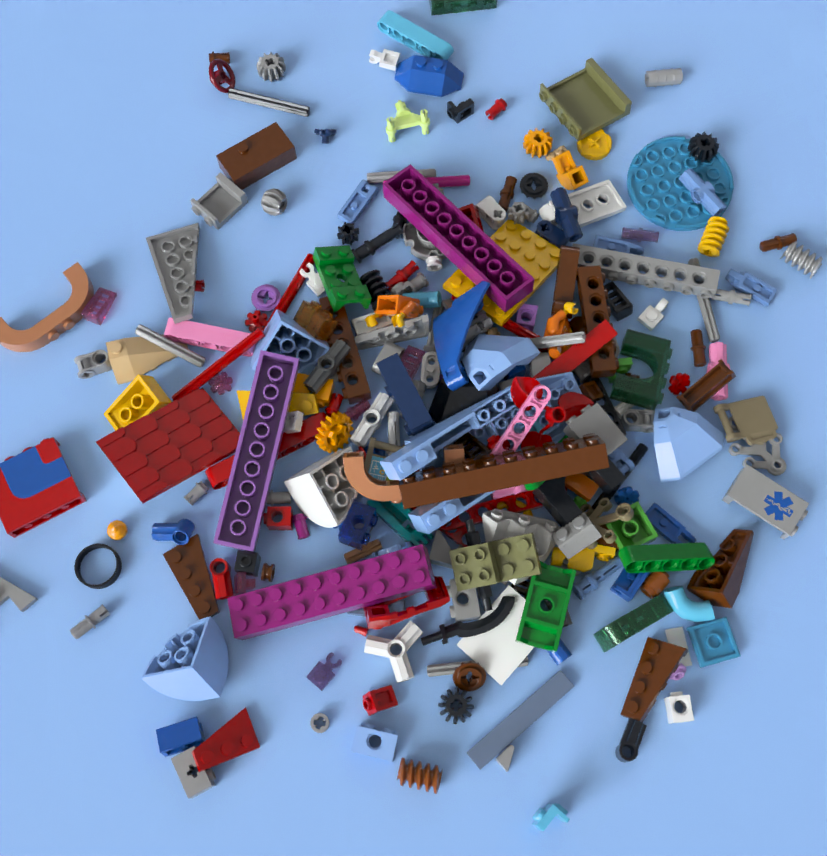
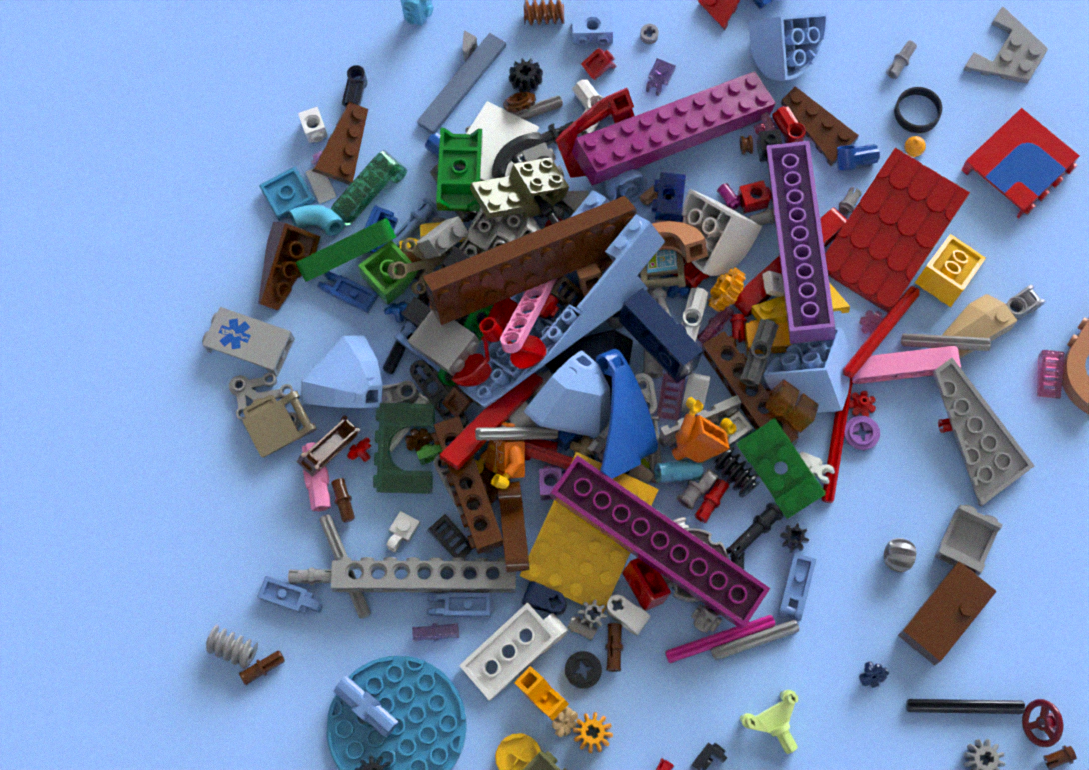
camera: 170 degrees right, 0 degrees up
(566, 214) = (532, 615): dark blue piece -> none
(655, 584) = (352, 226): dark orange brick -> none
(713, 236) = (343, 647): yellow piece -> none

